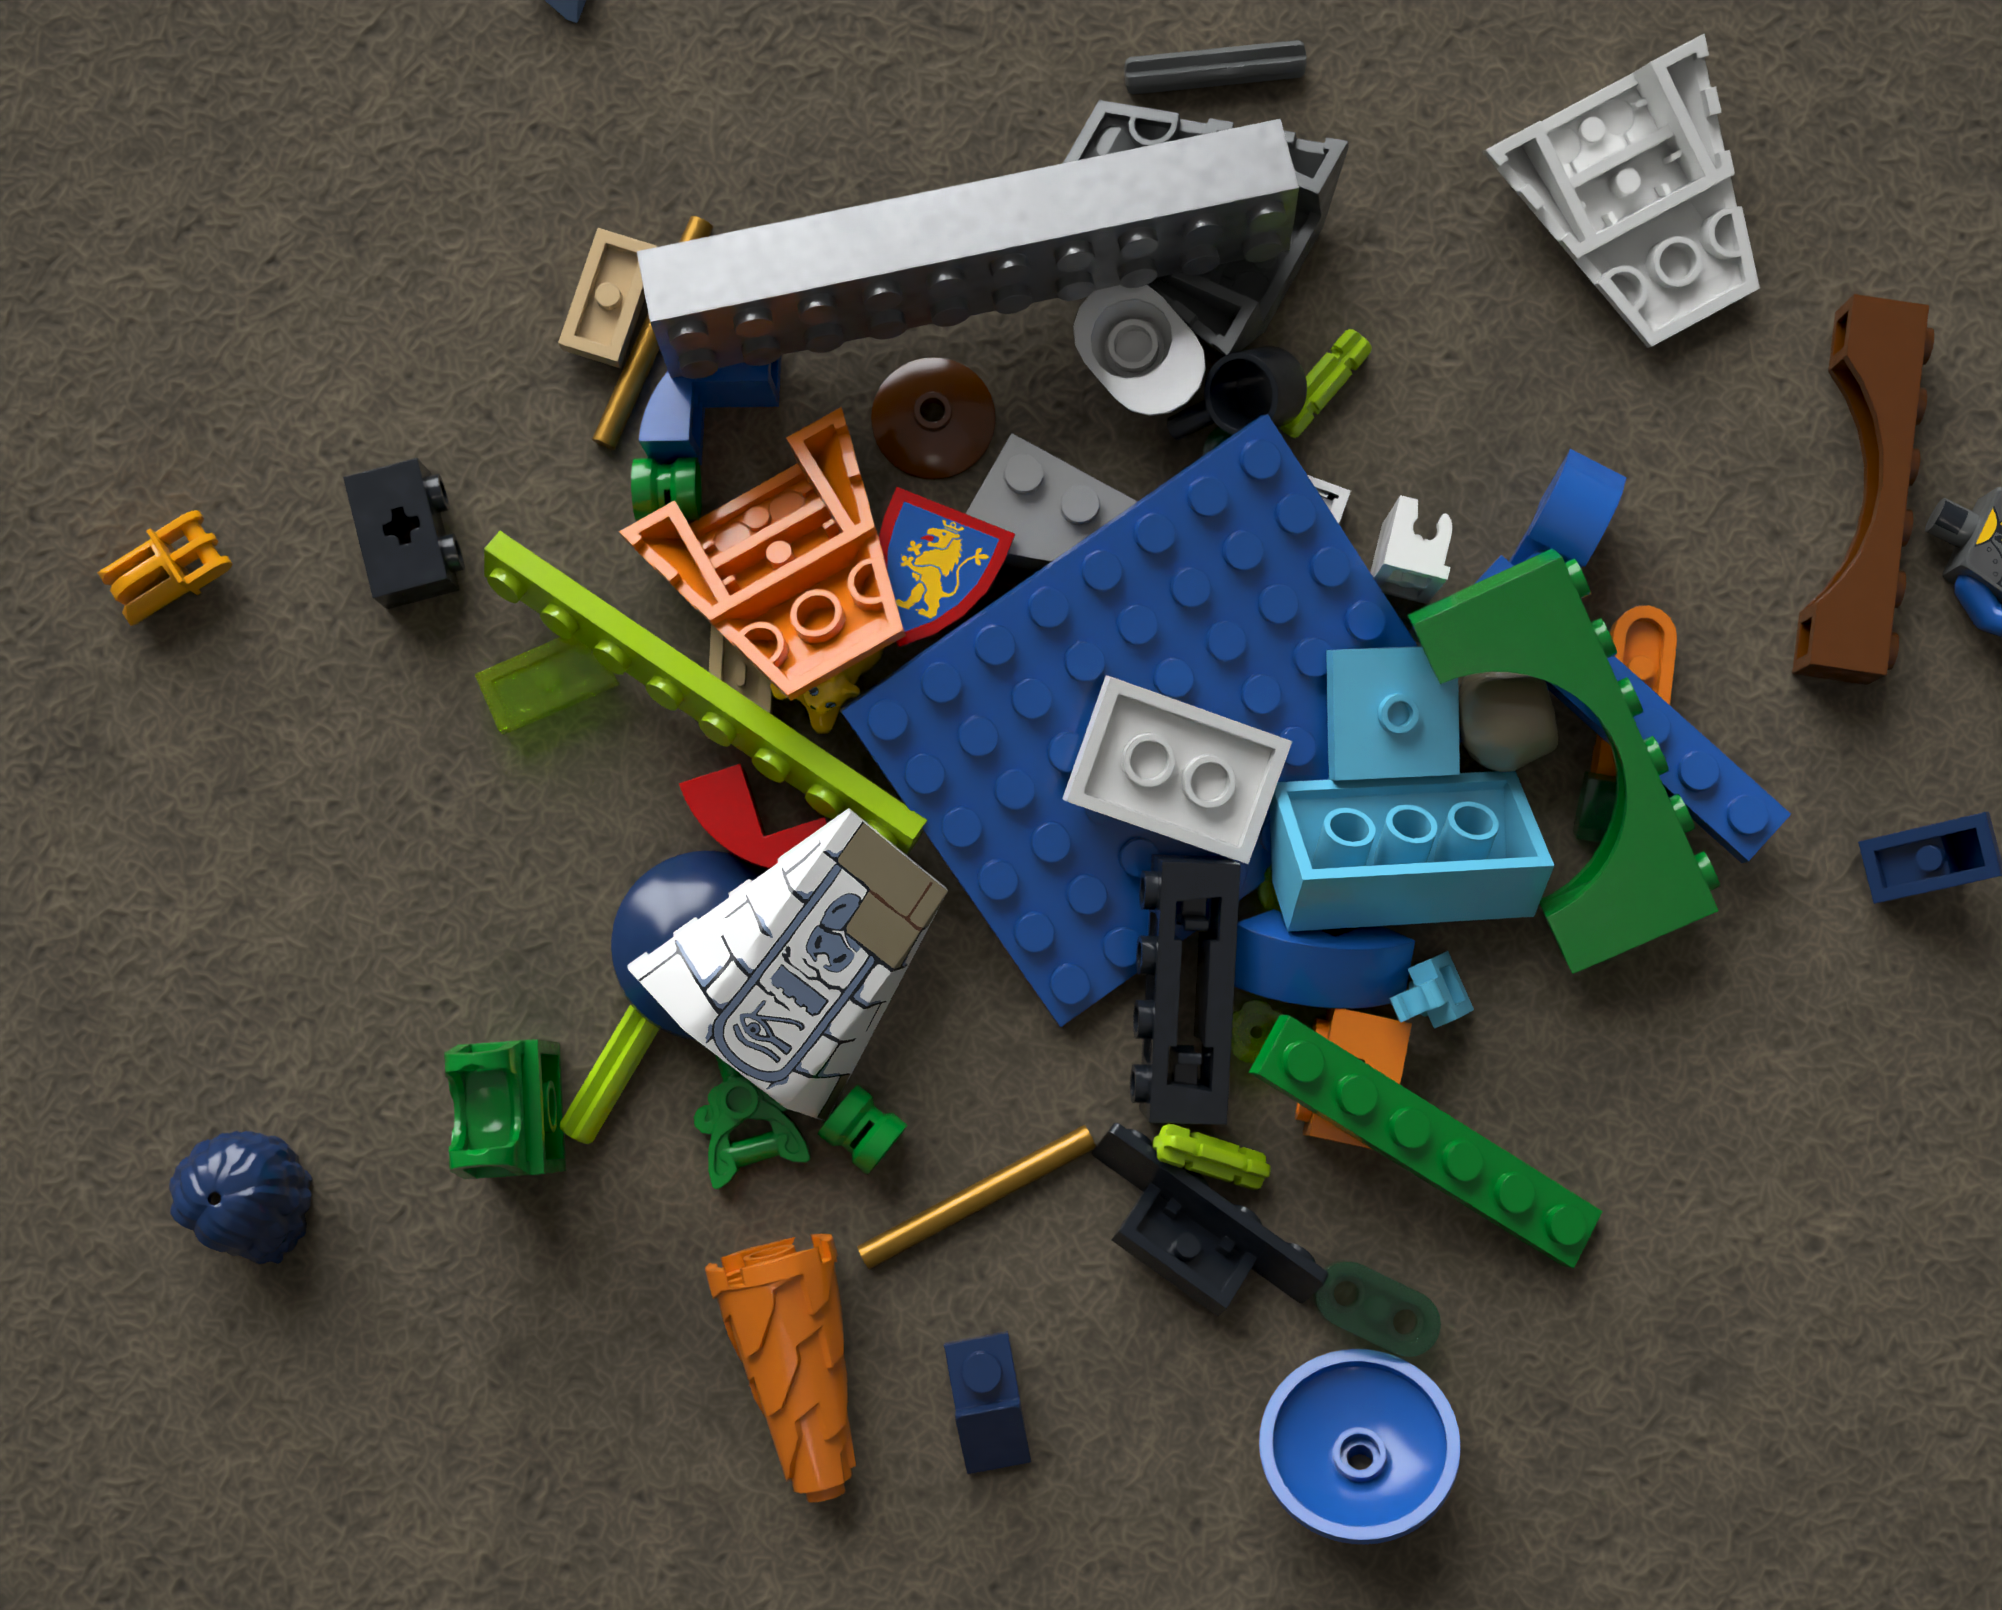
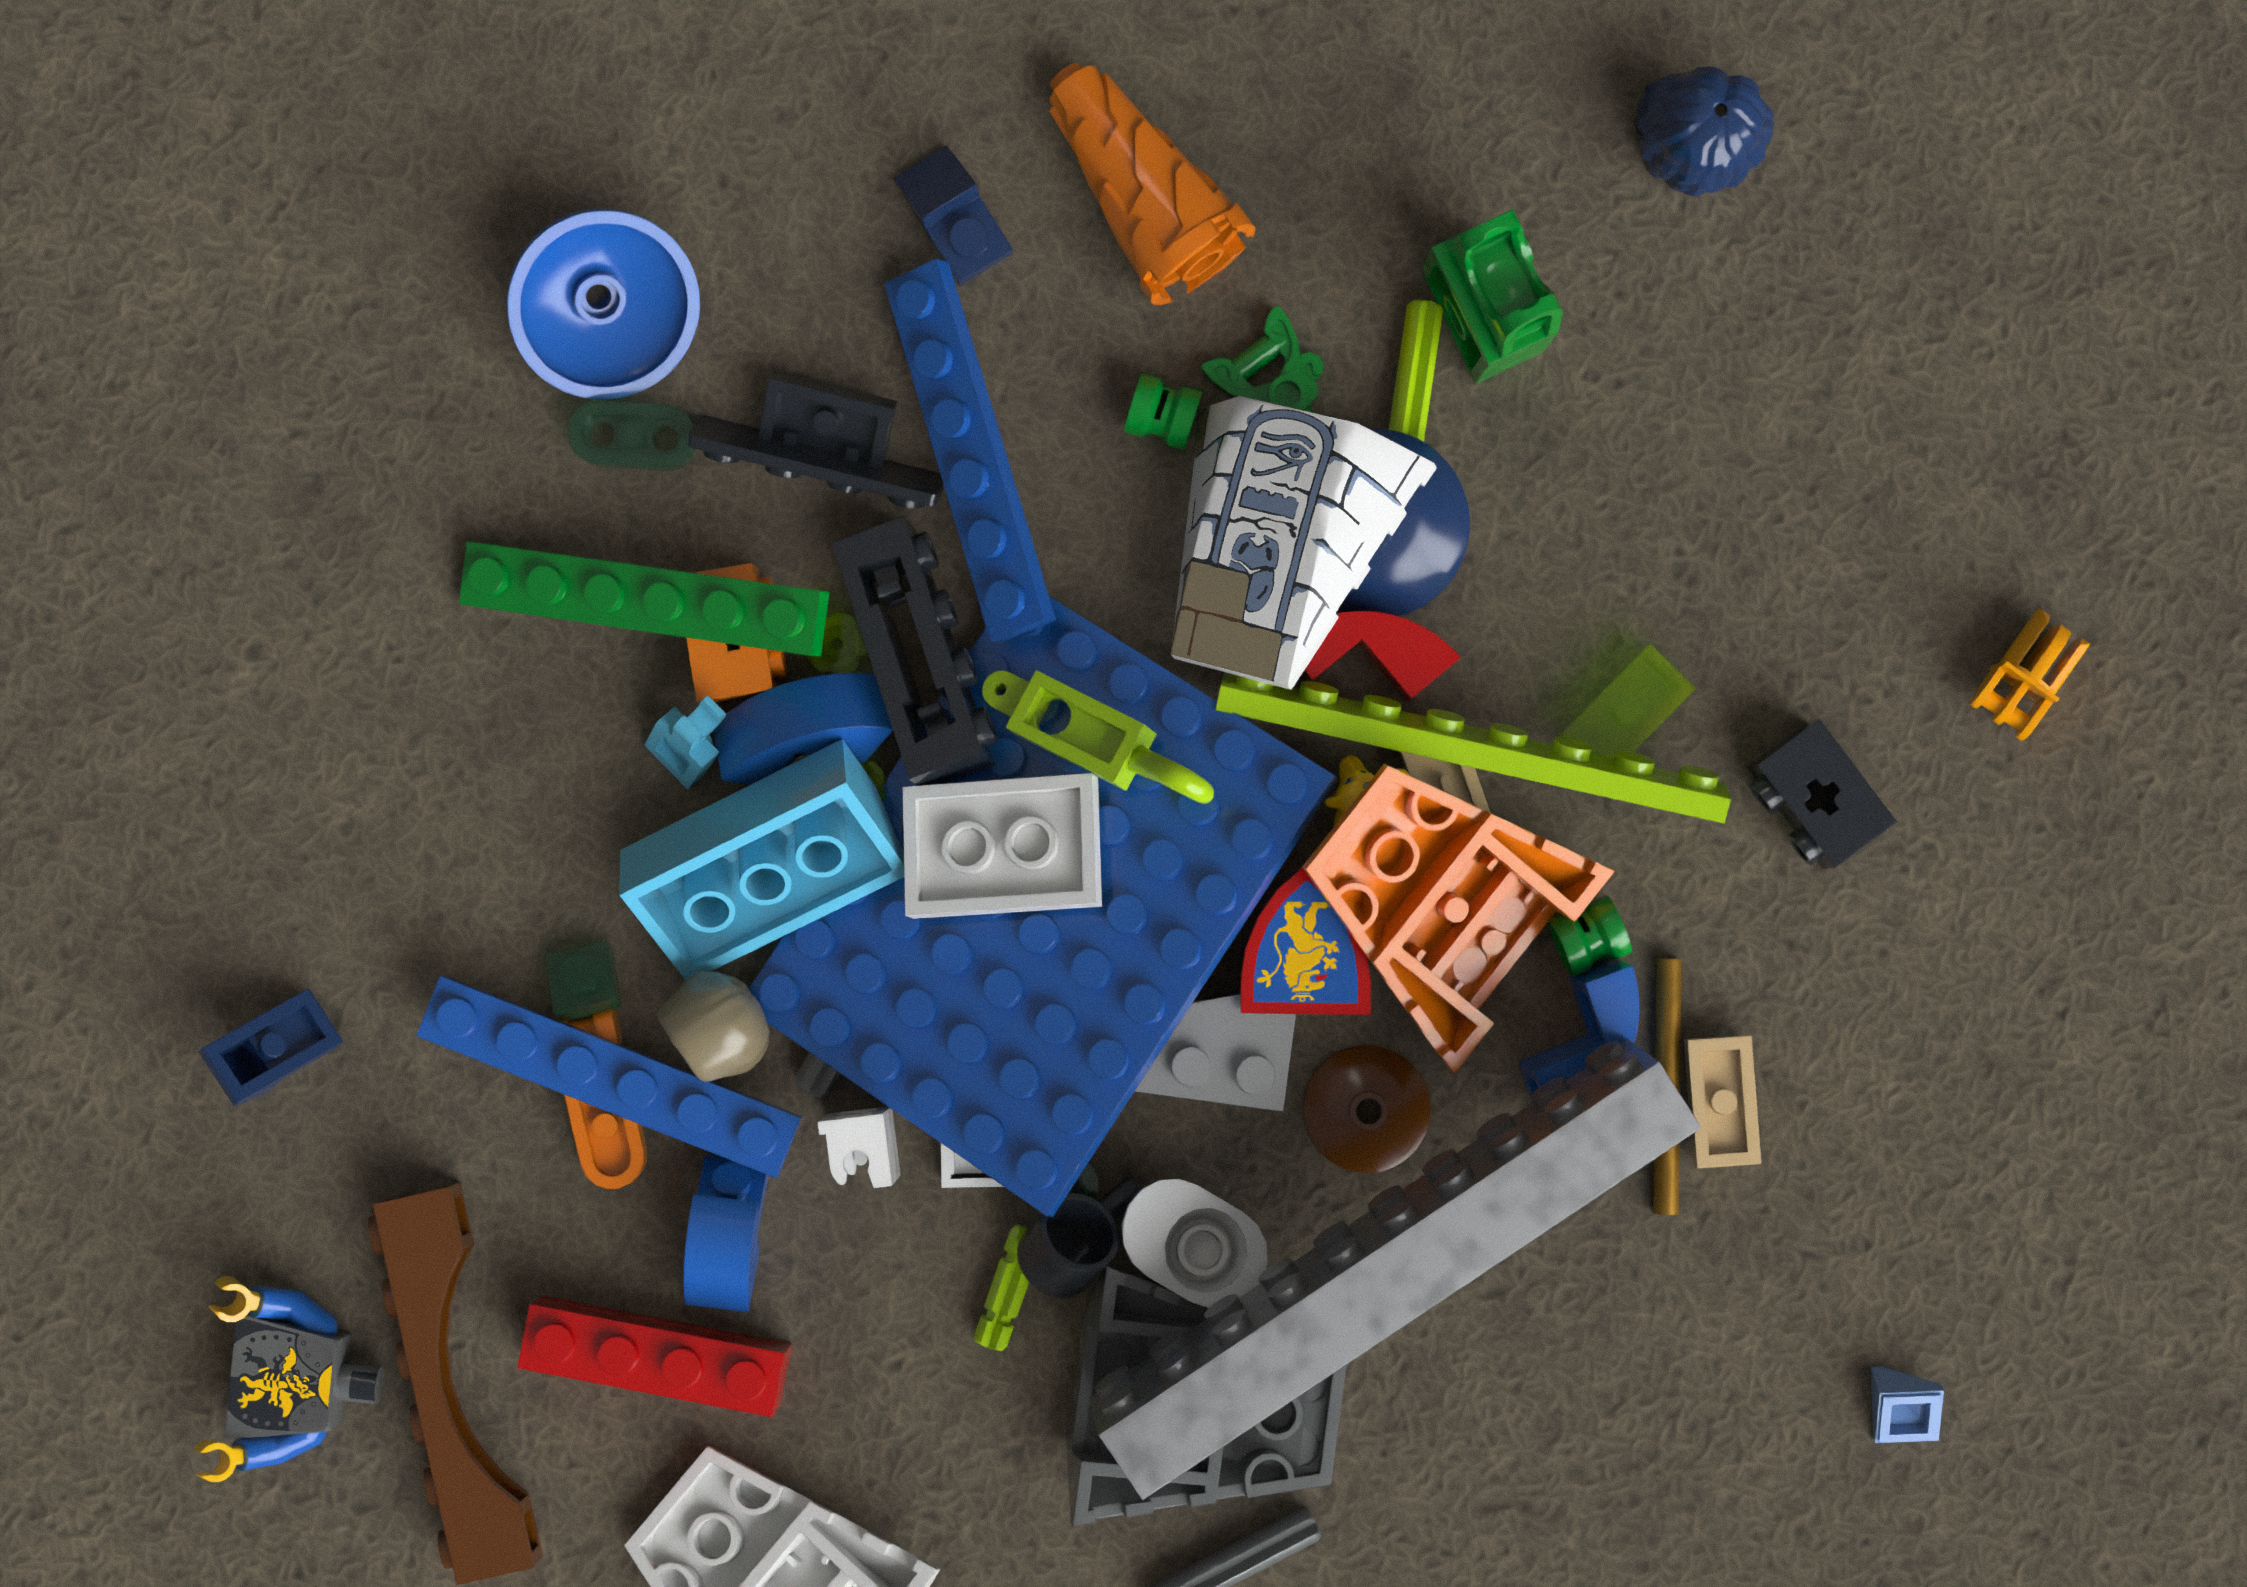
camera: 160 degrees right, 5 degrees up
(976, 1197) = (1059, 366): pearl gold bar -> none
(1050, 835) = (1095, 738): none -> lime piece
(1061, 1164) = (969, 451): none -> blue plate
(1211, 1156) = (834, 510): lime axle -> none
(1390, 715) = (822, 985): medium azure plate -> none
(1644, 870) = (718, 1105): green arch -> none
(1671, 442) = (654, 1355): none -> red brick

